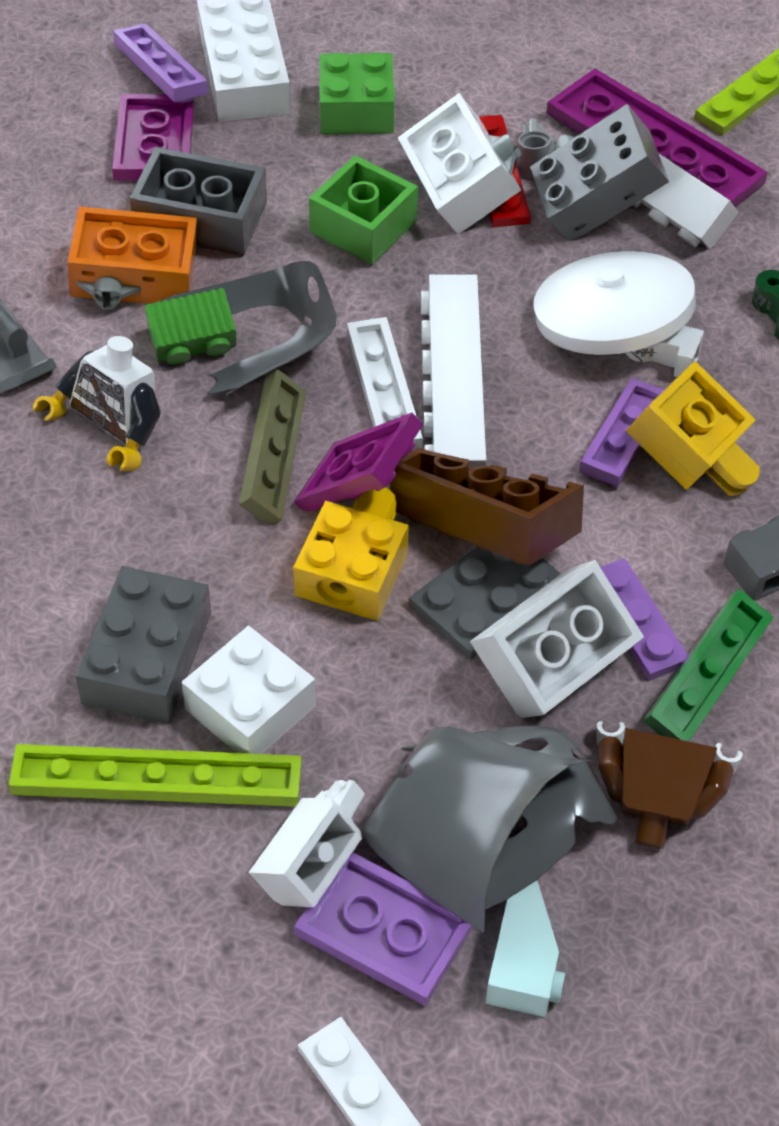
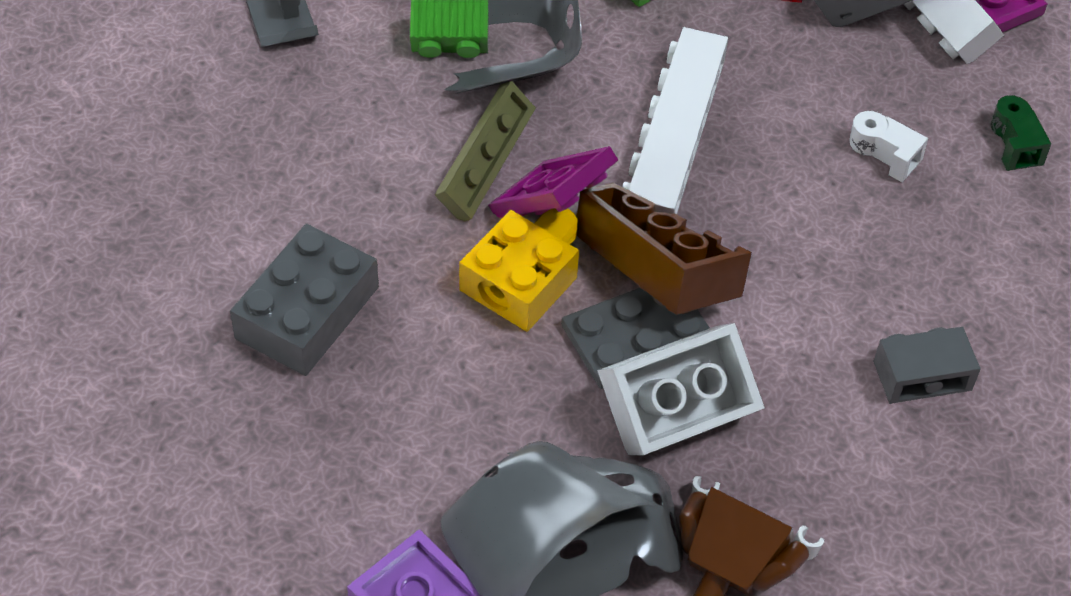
camera: 15 degrees right, 0 degrees up
(112, 393) = (356, 69): torso -> none
(156, 775) = (277, 419): lime plate -> none
(249, 693) = (382, 367): white brick -> none
(310, 847) = (387, 518): white hinge -> none
(380, 372) = (610, 111): white plate -> none
(613, 447) = (819, 215): medium lavender plate -> none
(615, 302) = (852, 92): white dish -> none
(659, 649) = (780, 421): medium lavender plate -> none
(695, 432) = (884, 229): yellow brick -> none
(709, 668) = (820, 454): green plate -> none

